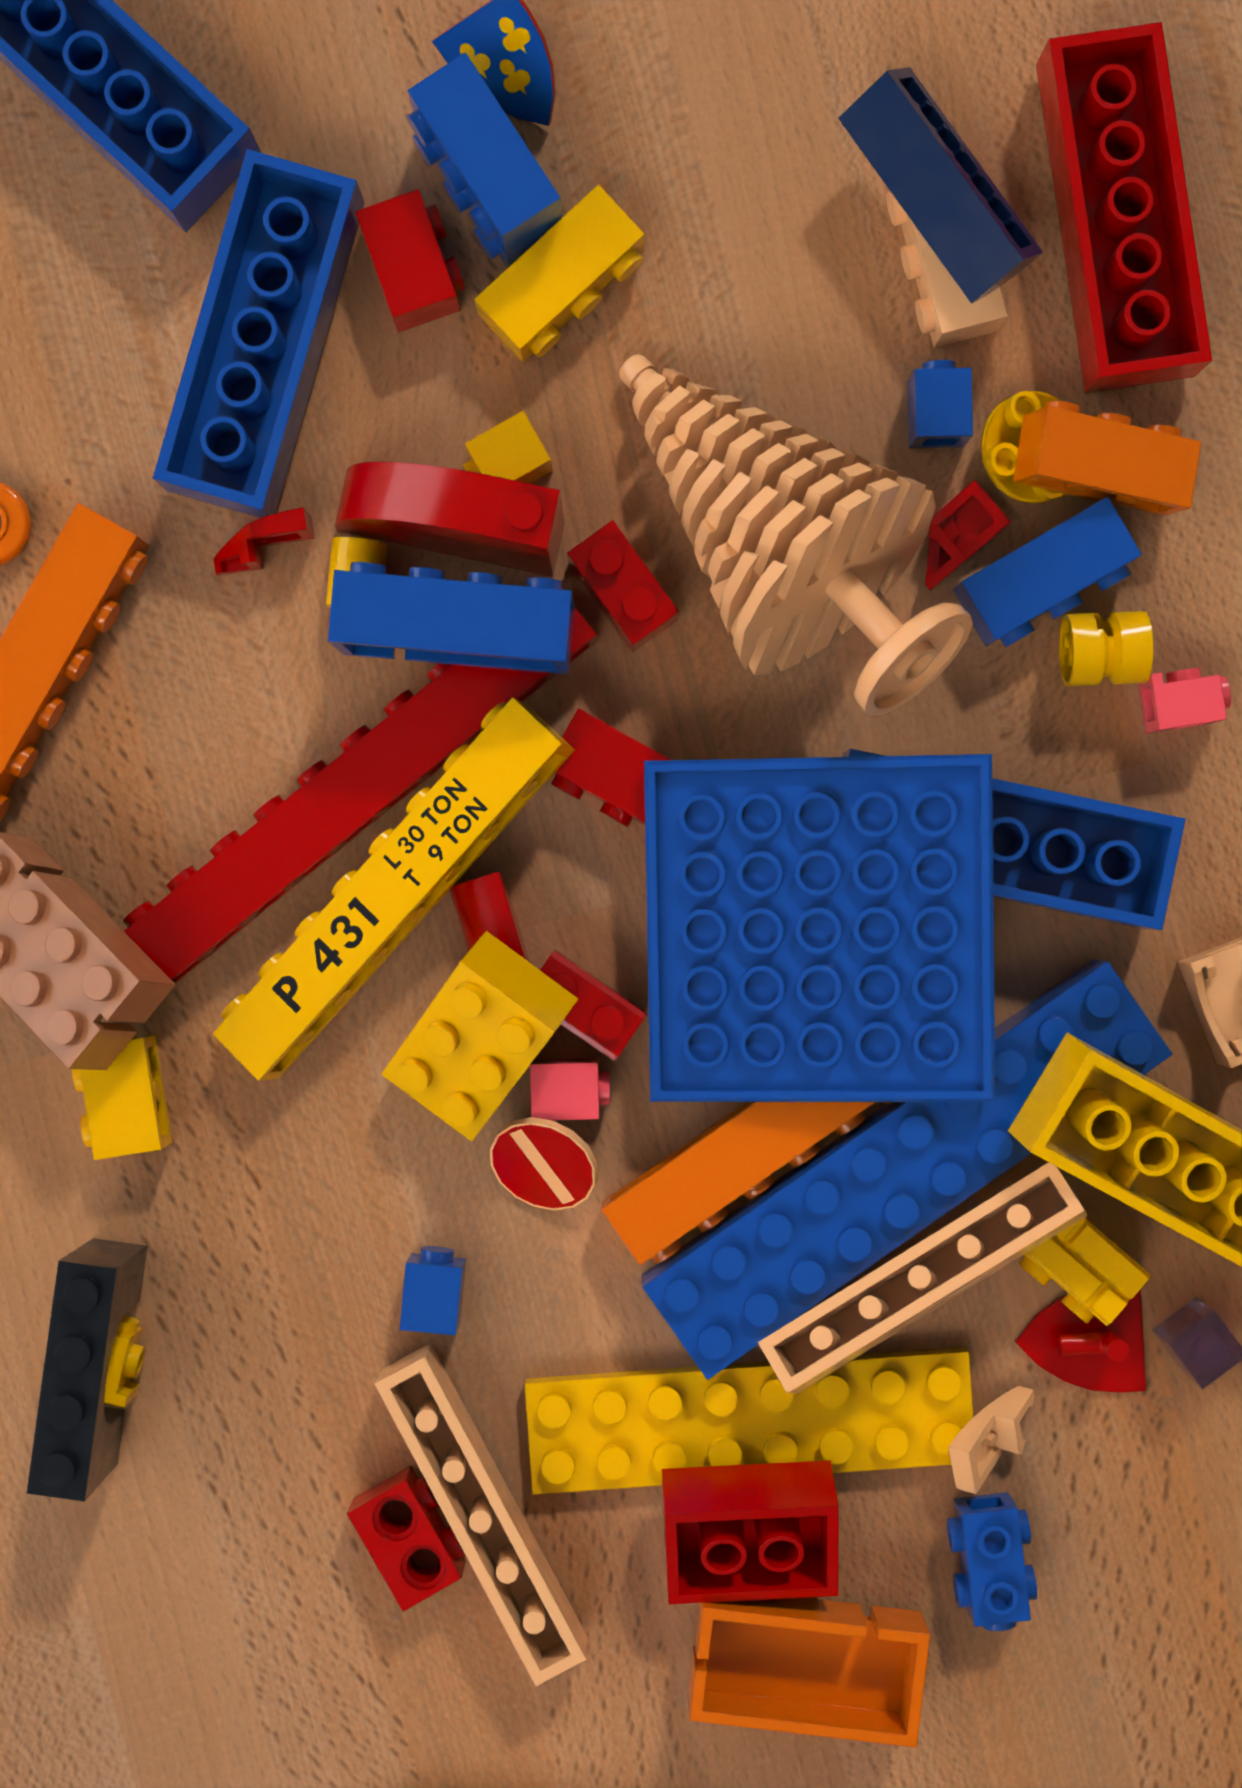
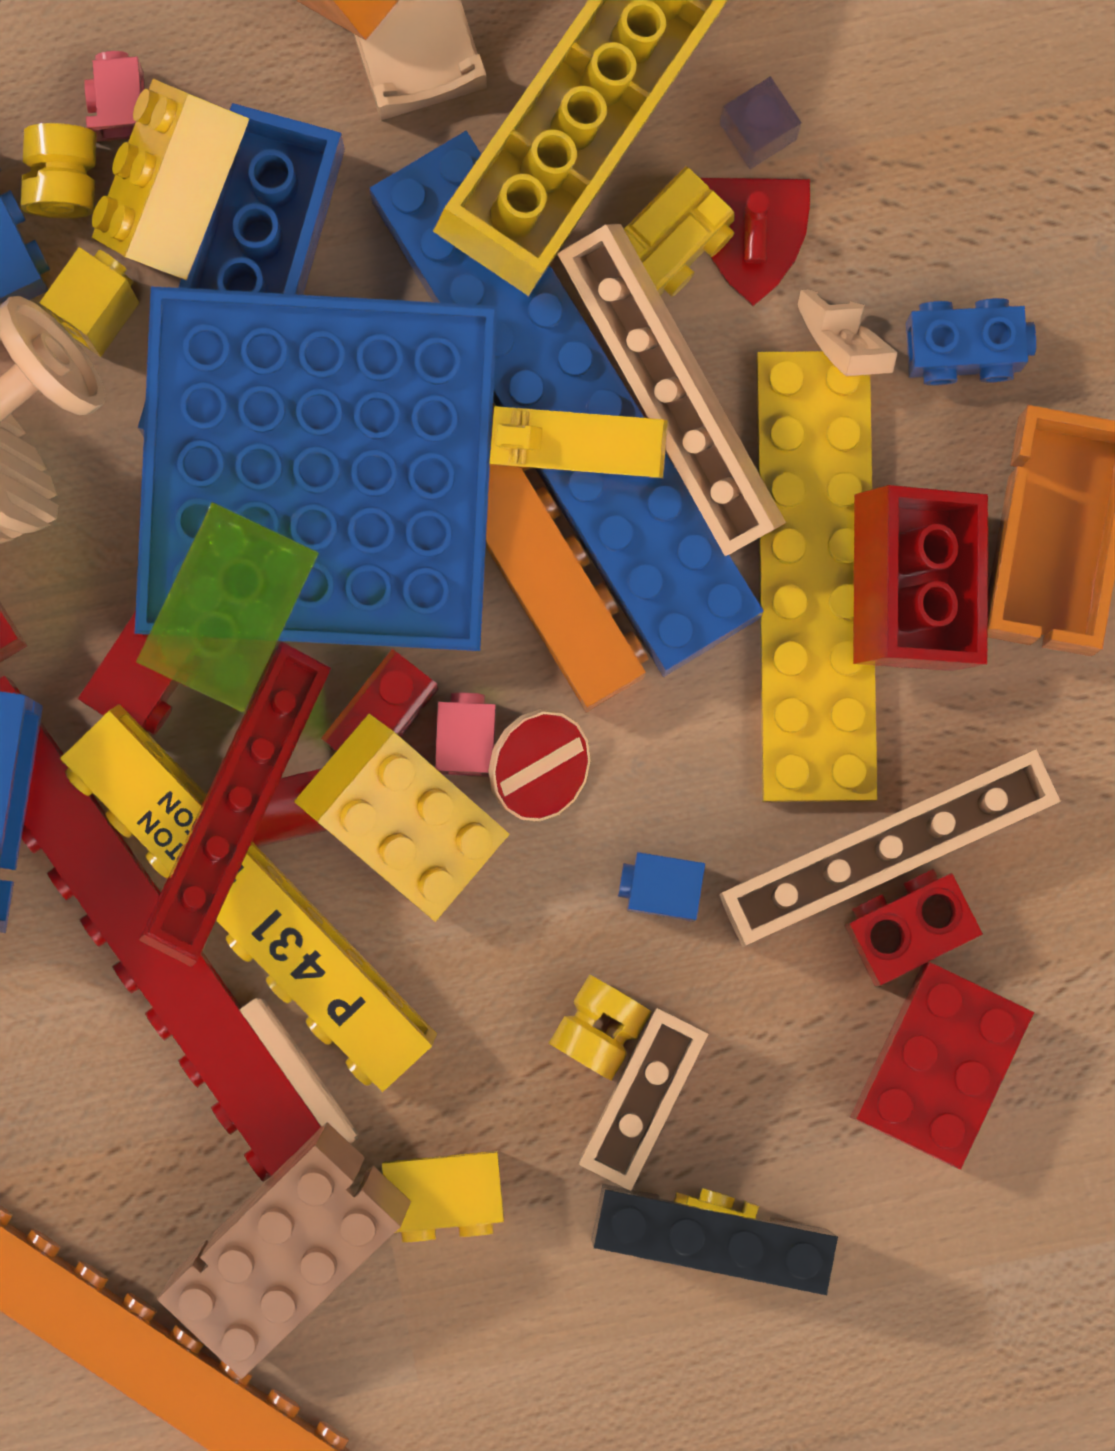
camera: 90 degrees left, 5 degrees down
(222, 1286) = (643, 1099): none -> light nougat brick
(232, 948) = (297, 1068): none -> light nougat tile
(271, 1233) = (589, 1045): none -> yellow wheel
(274, 1574) = (942, 1065): none -> red brick
(476, 873) = (235, 805): none -> red tile
(670, 856) = (227, 607): none -> clear neon green brick
(862, 1191) = (578, 442): none -> yellow hinge
(978, 691) = (91, 299): none -> yellow brick
(1104, 761) = (168, 178): none -> yellow brick

